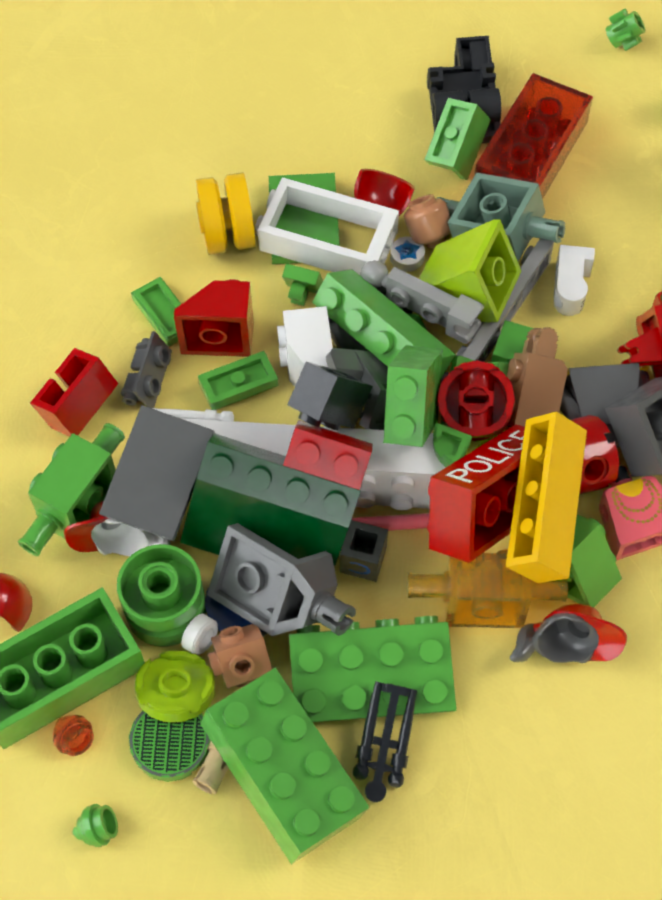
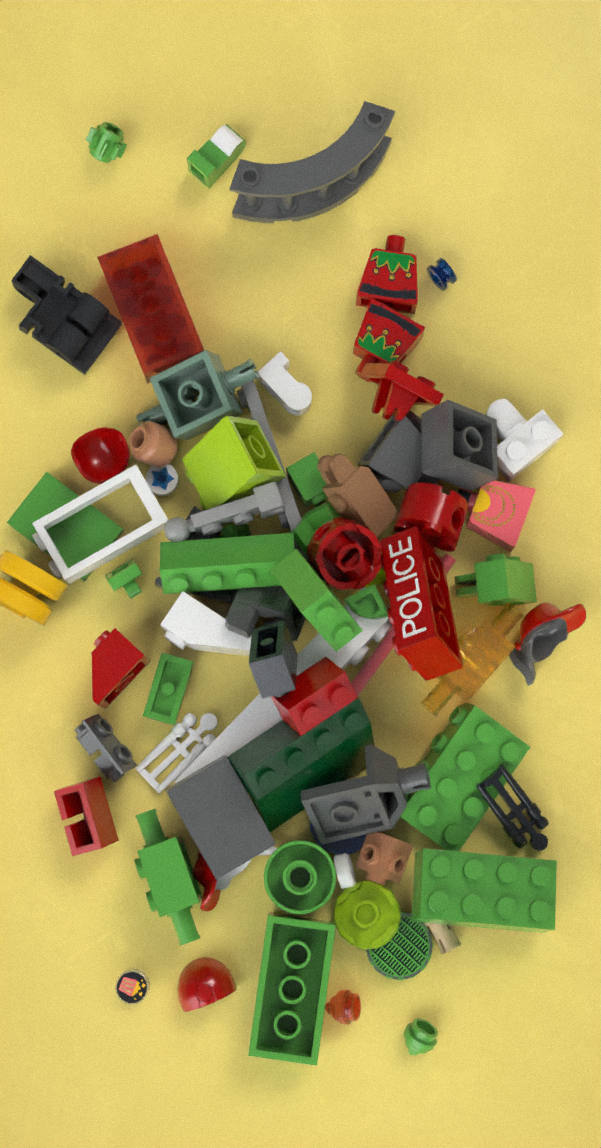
camera: 50 degrees left, 20 degrees up
(158, 306) = (59, 693): bright green tile -> none
(363, 550) = (381, 714): pearl dark grey brick -> none
(458, 137) = (101, 361): bright green panel -> none
(546, 498) = (465, 580): yellow brick -> none

